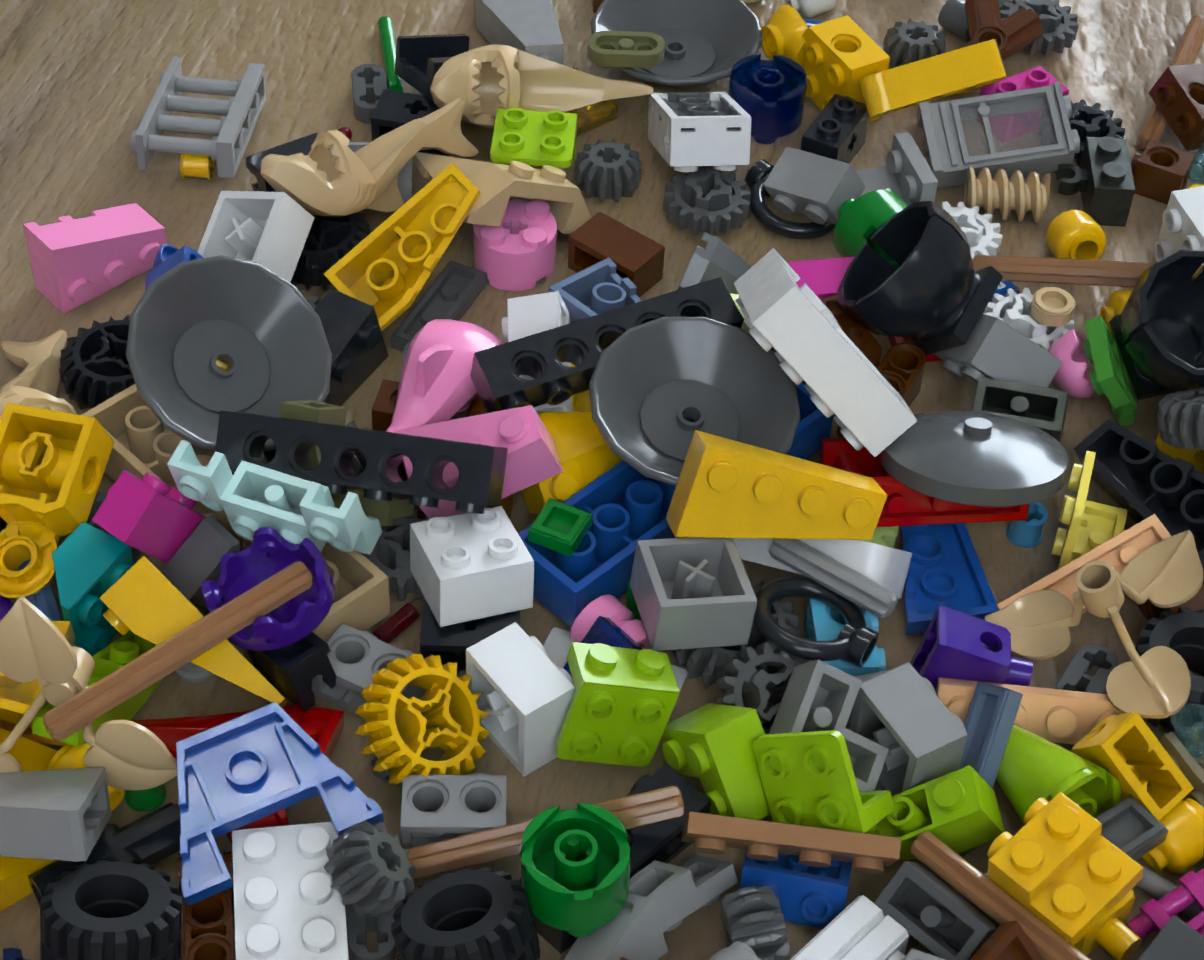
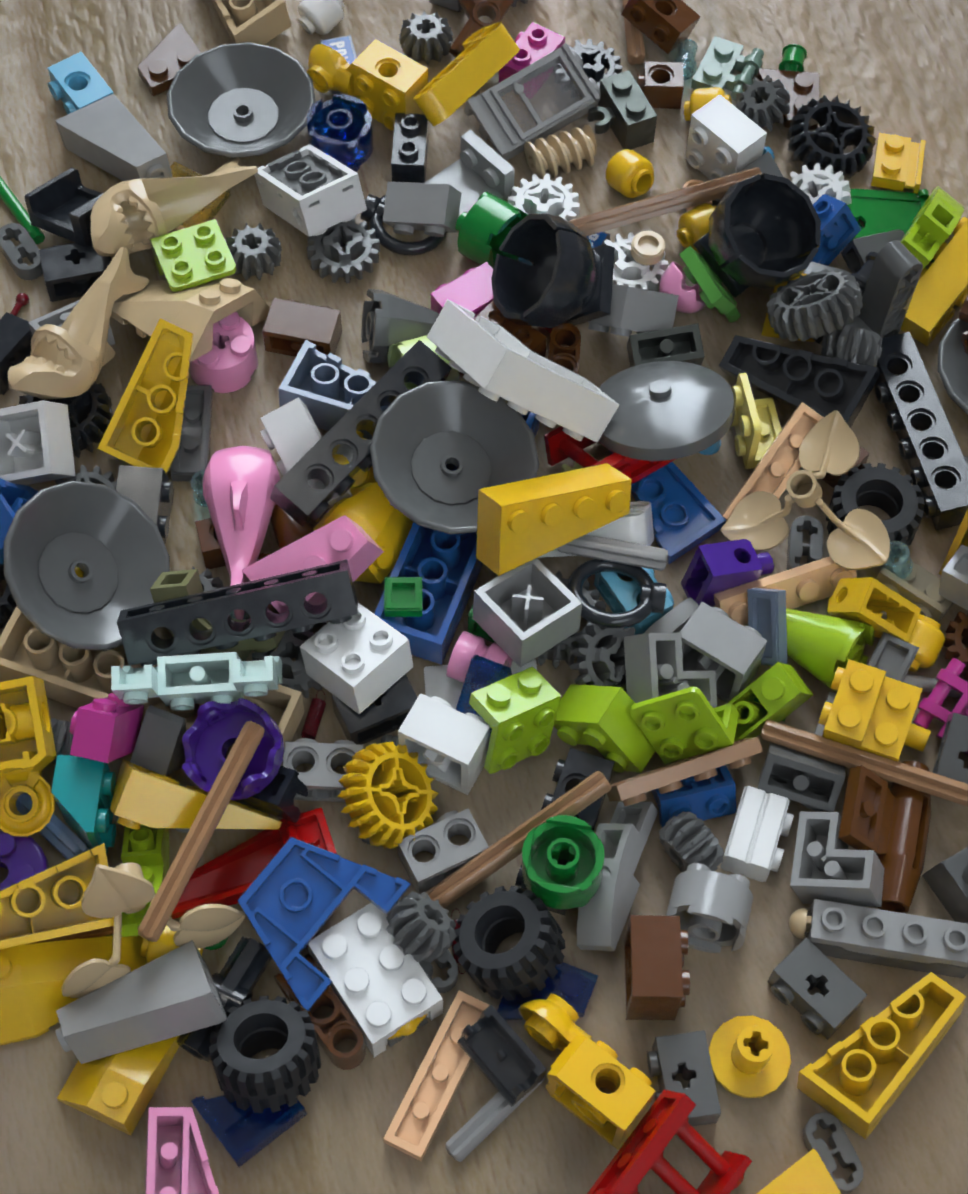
camera: 25 degrees left, 15 degrees up
(626, 49) = (216, 137): olive plate -> none

